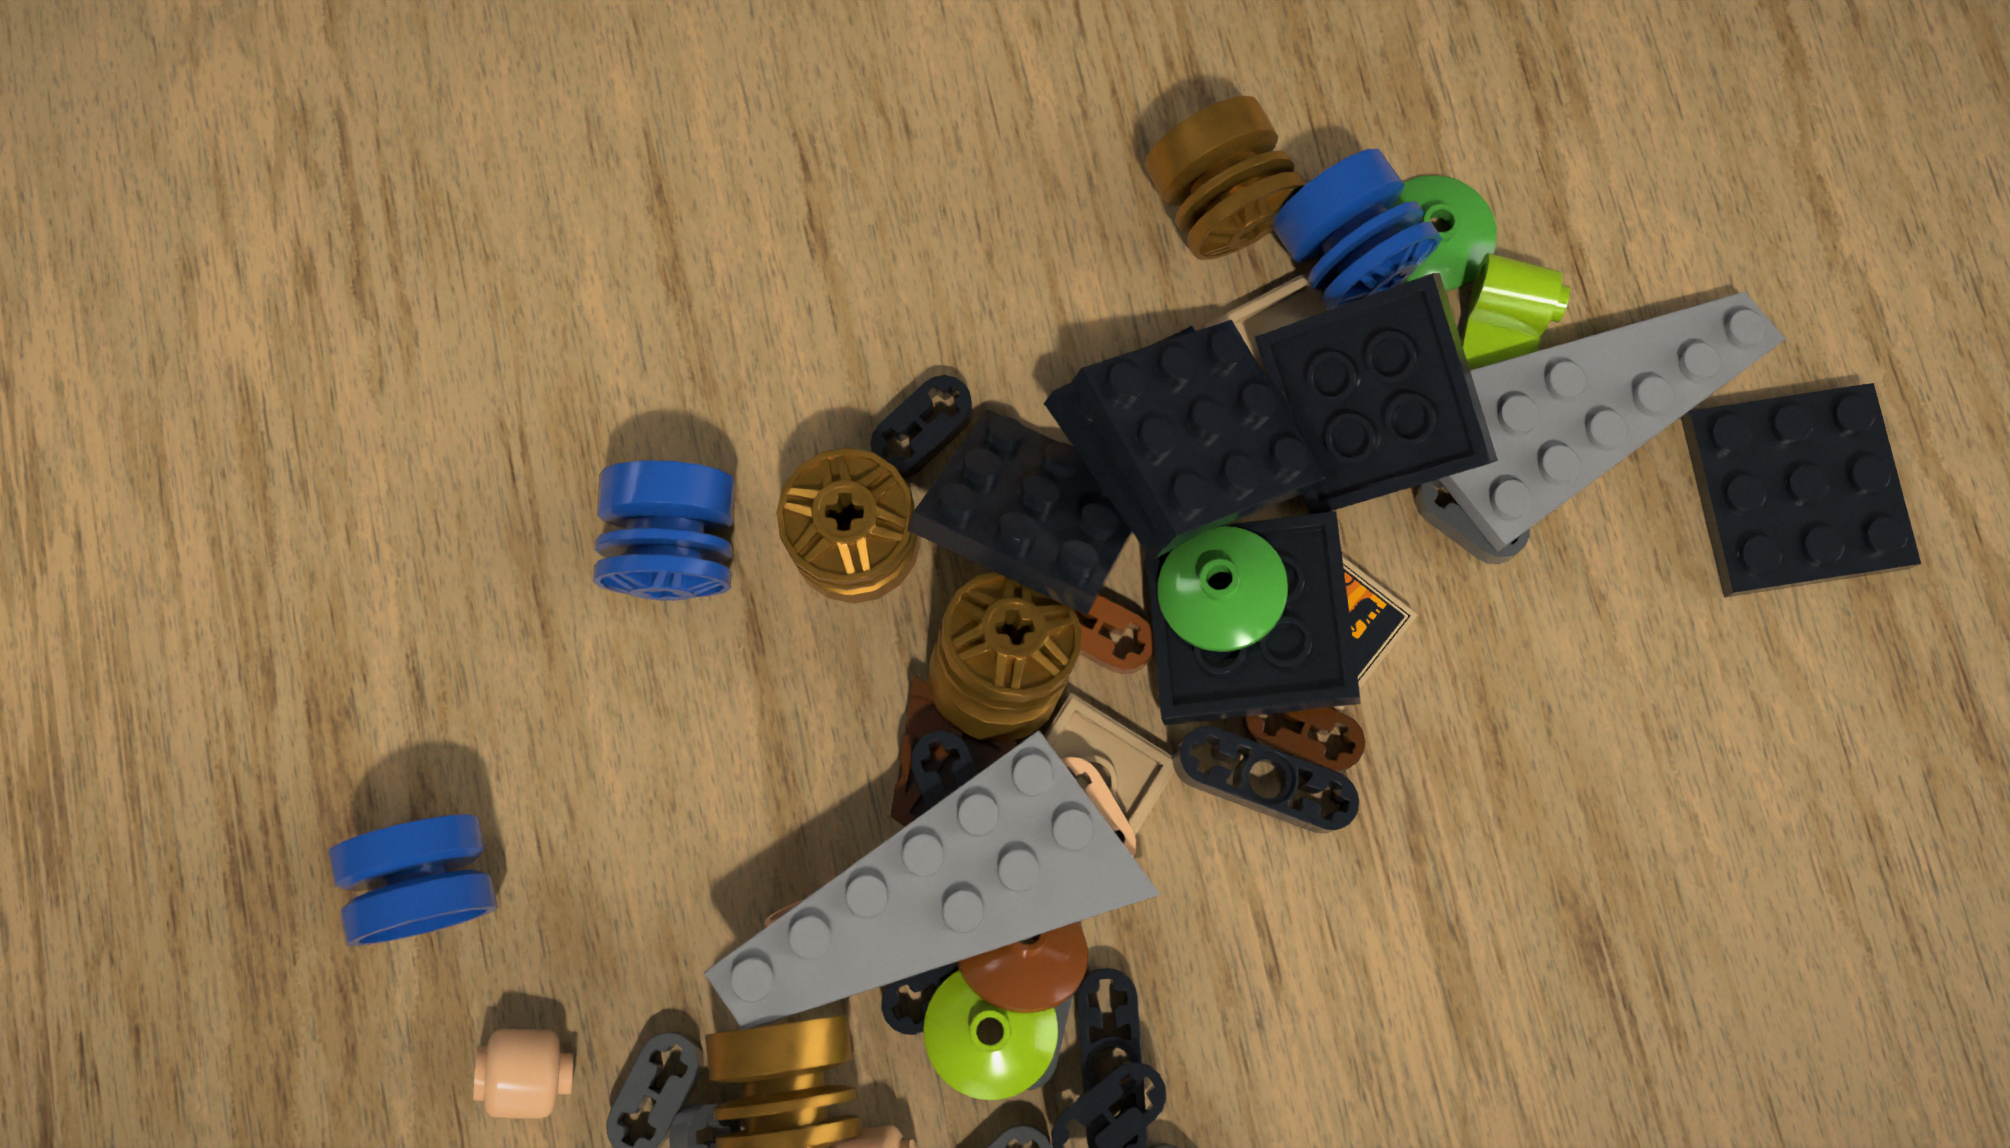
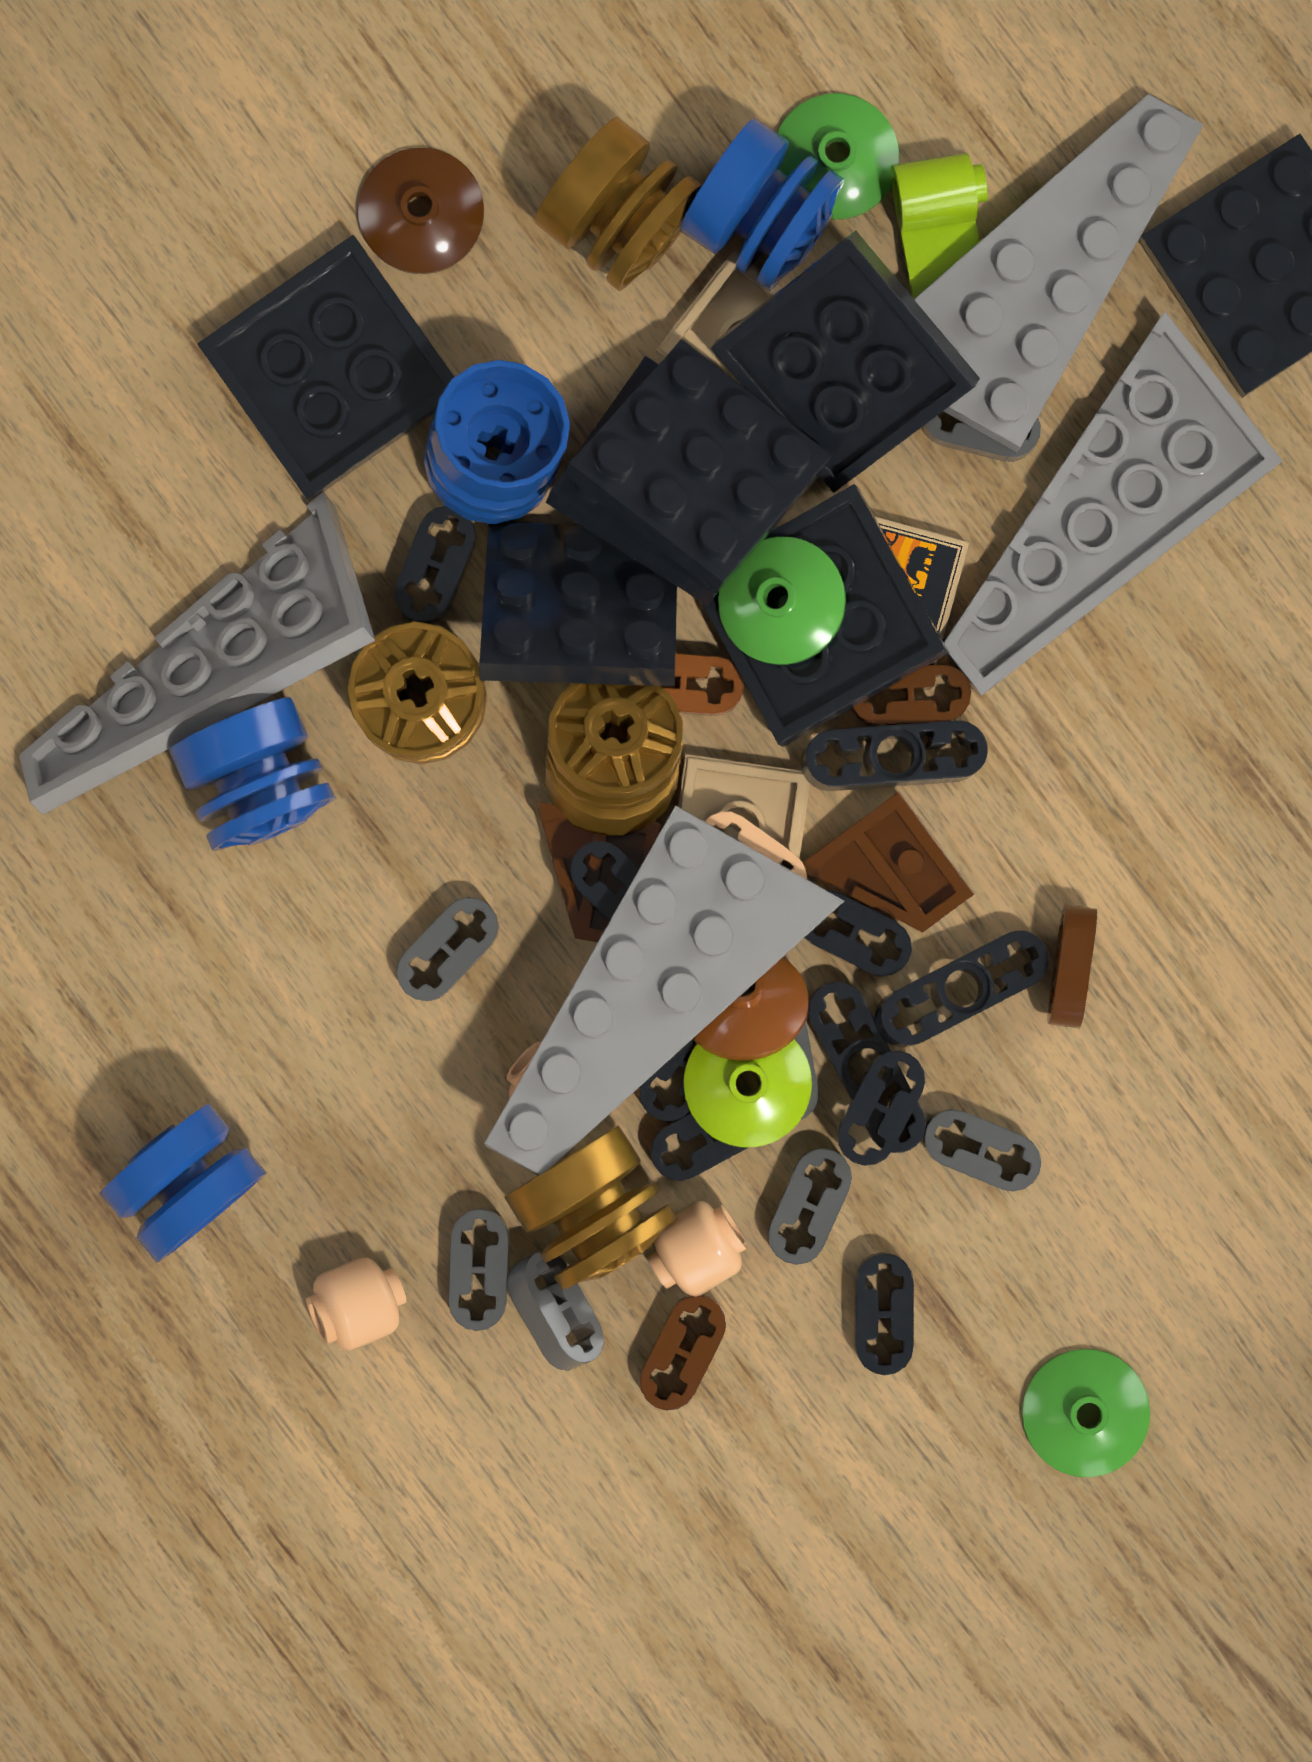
camera: 30 degrees left, 10 degrees up
(695, 416) = (217, 658): none -> light grey wing
(764, 761) = (436, 937): none -> dark grey beam
(909, 220) = (329, 367): none -> black plate
(915, 1084) = (702, 1158): none -> black beam
(1029, 305) = (503, 409): none -> blue wheel
(1043, 151) = (429, 241): none -> reddish brown dish
(1149, 951) = (855, 953): none -> black beam
(1220, 884) = (893, 866): none -> reddish brown wing
(1281, 1012) = (1009, 983): none -> black beam
(1353, 1059) = (1072, 966): none -> reddish brown beam
(1596, 630) = (1137, 482): none -> light grey wing

